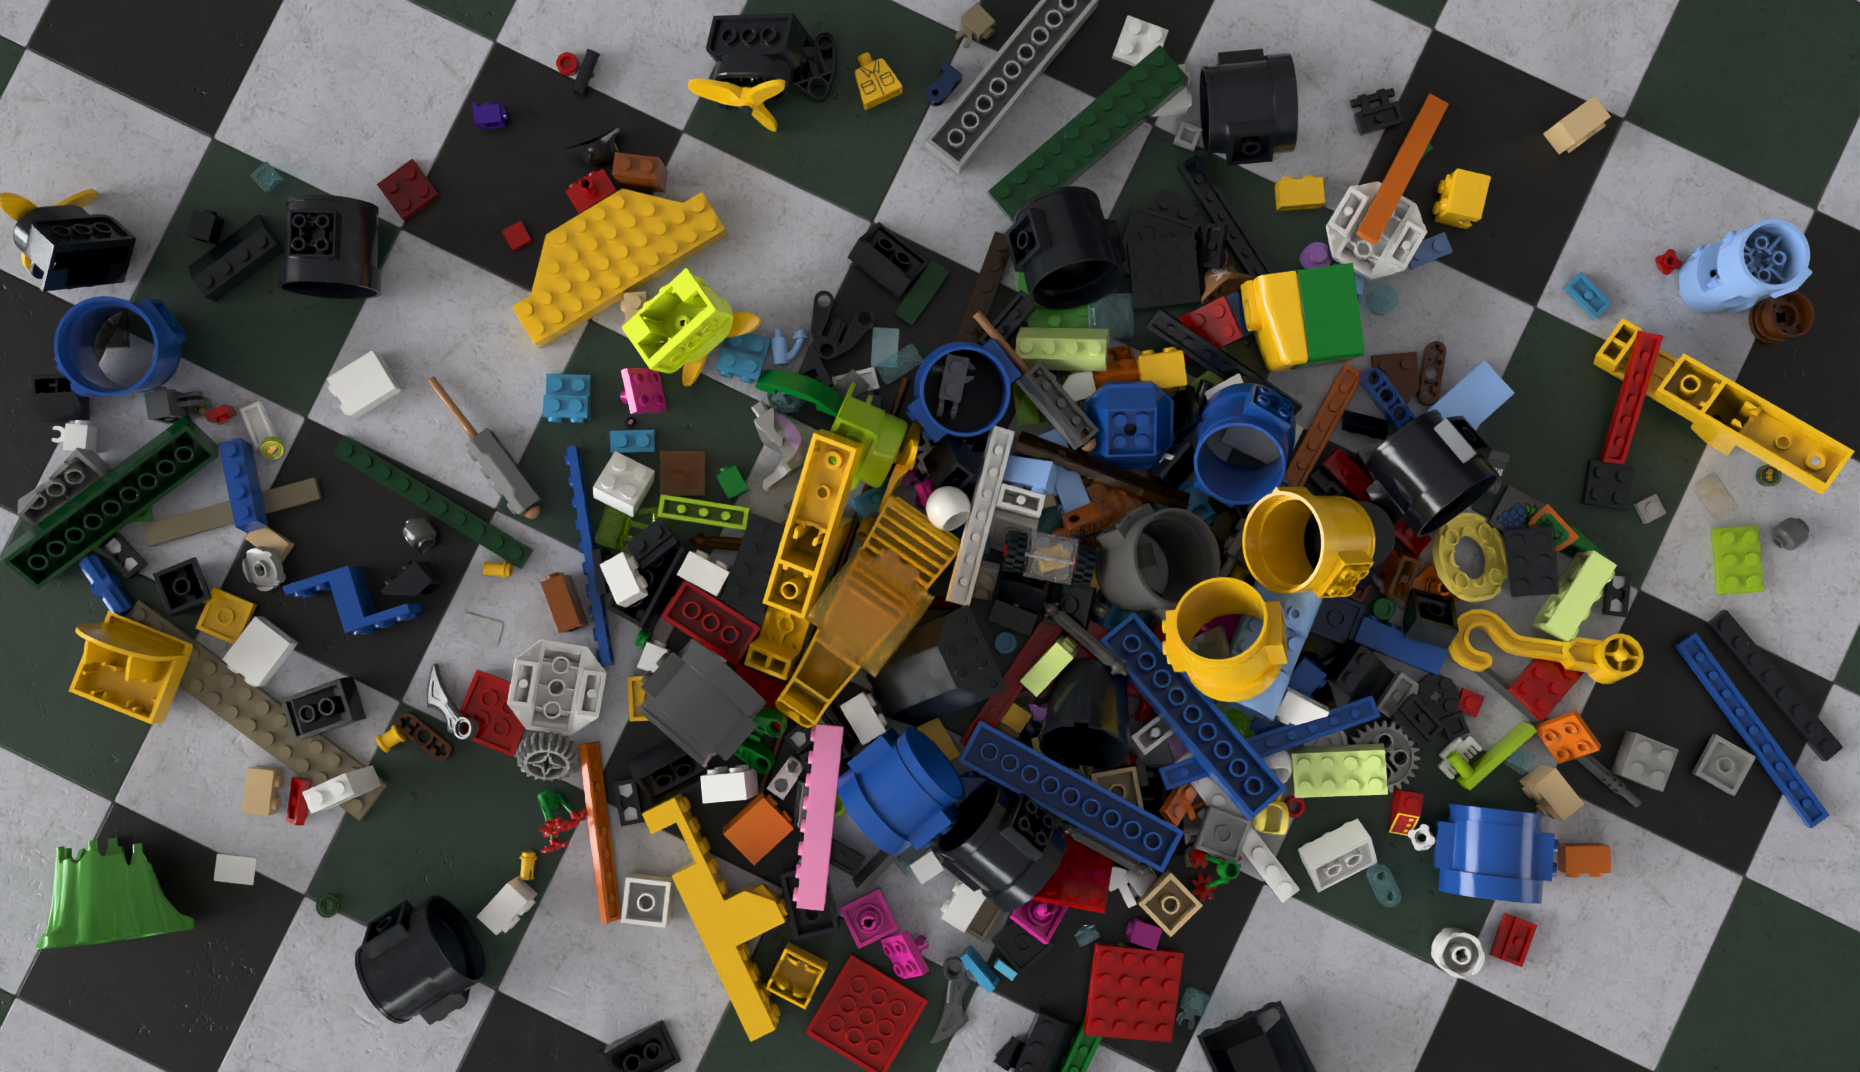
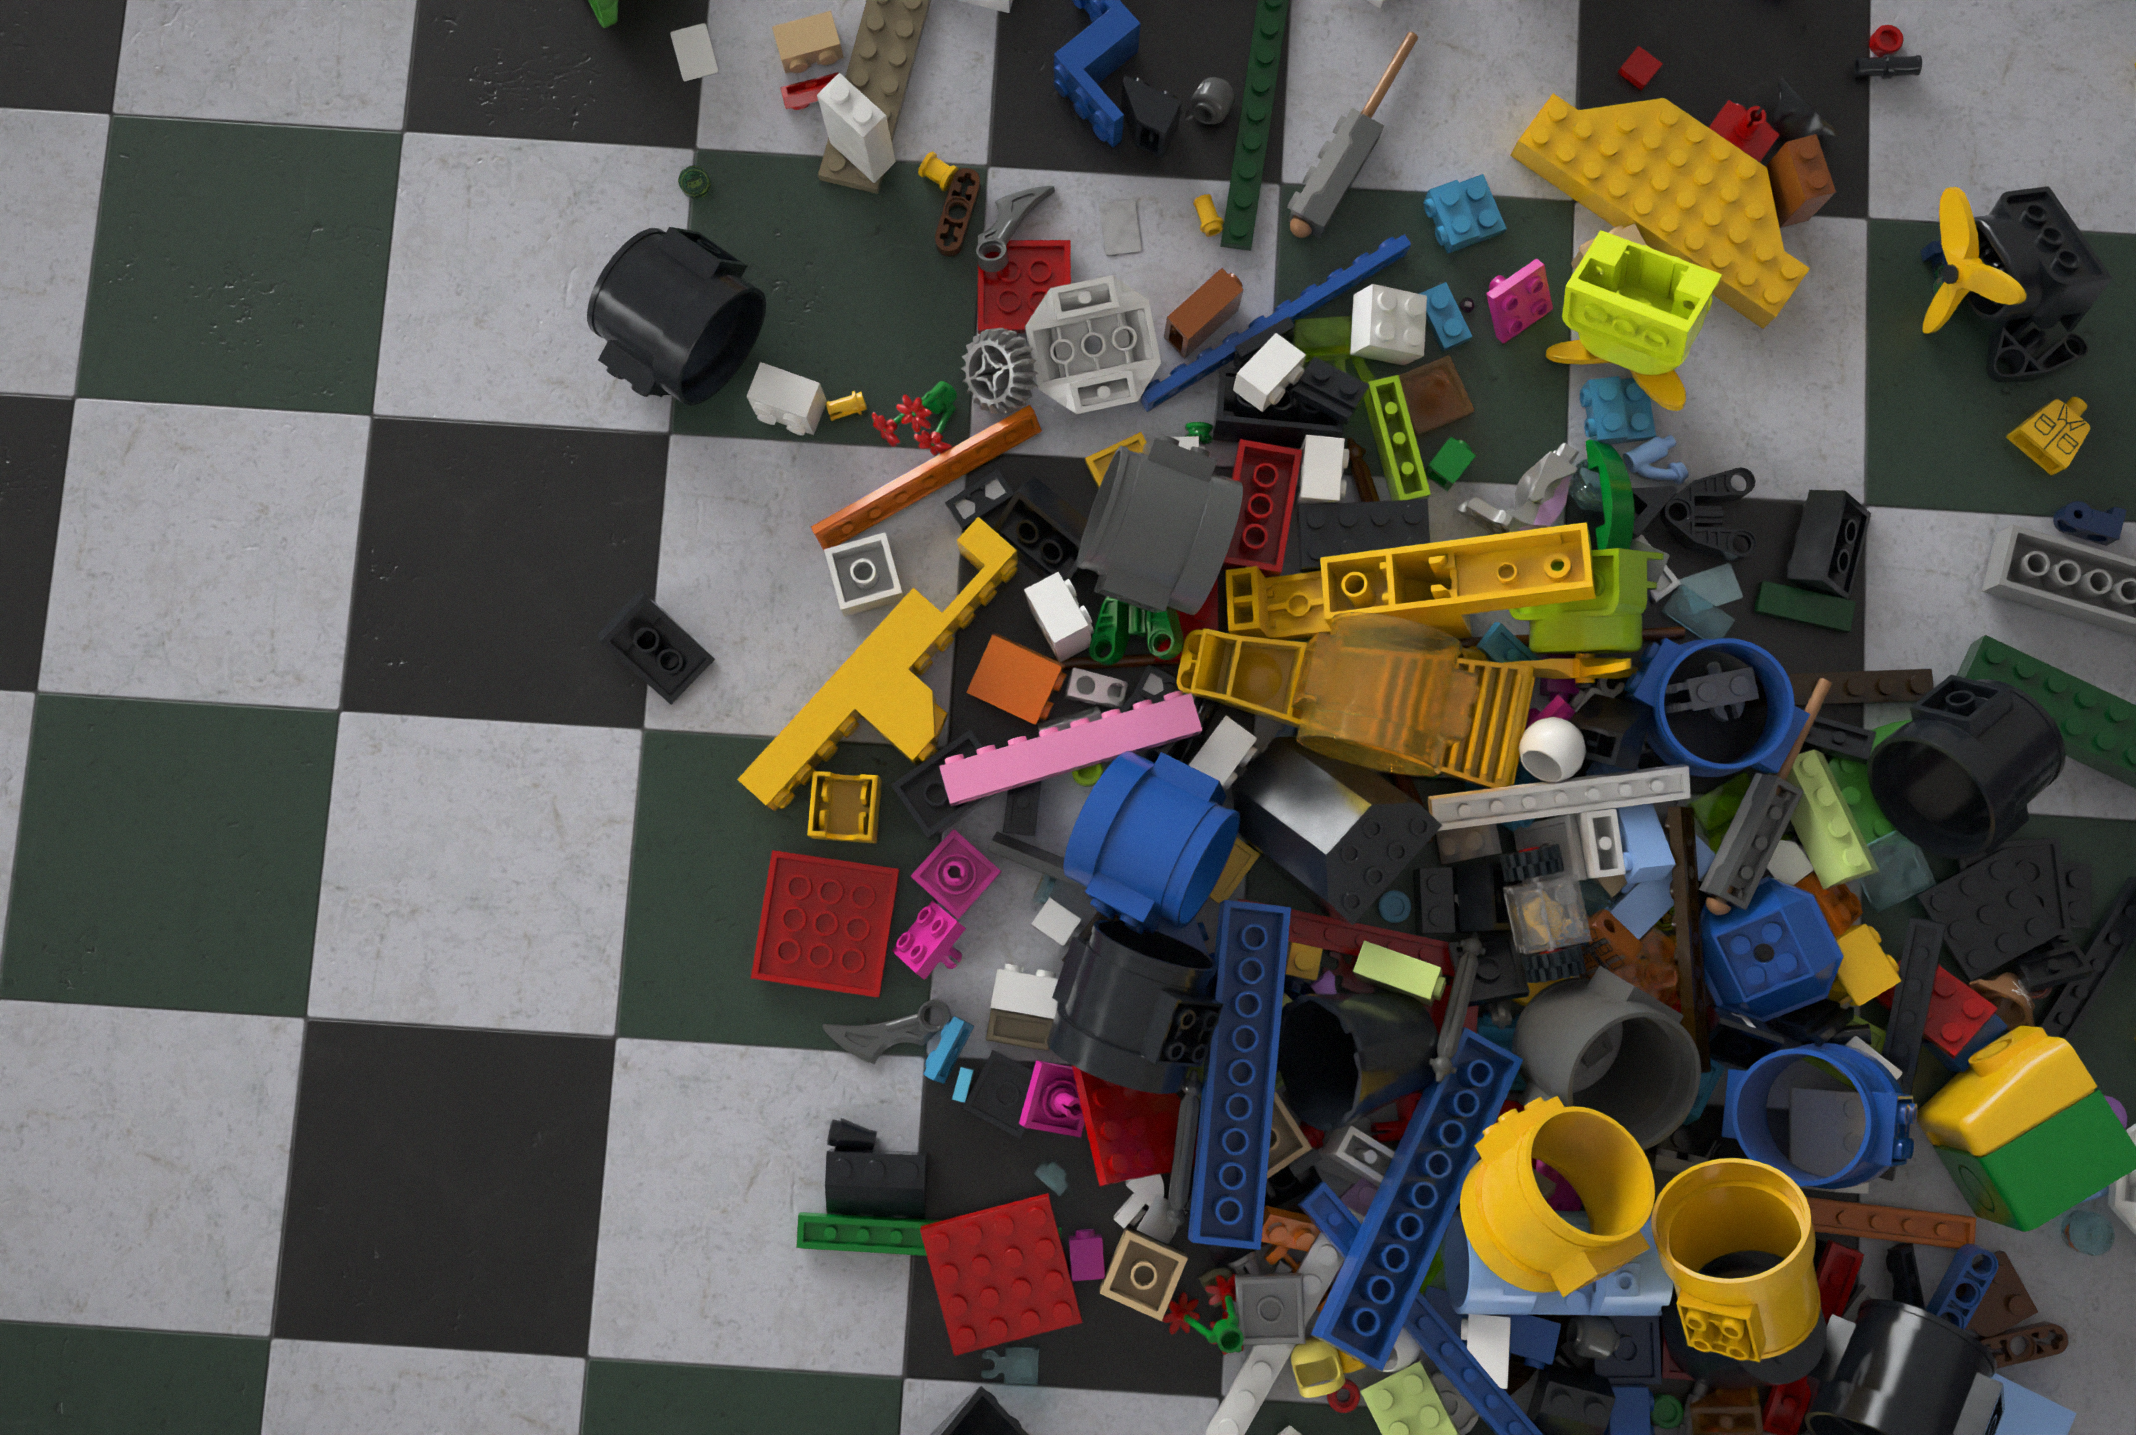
camera: 65 degrees right, 5 degrees down
(323, 708) = (943, 73): black slope -> none
(1320, 638) = (1592, 1336): none -> dark grey head

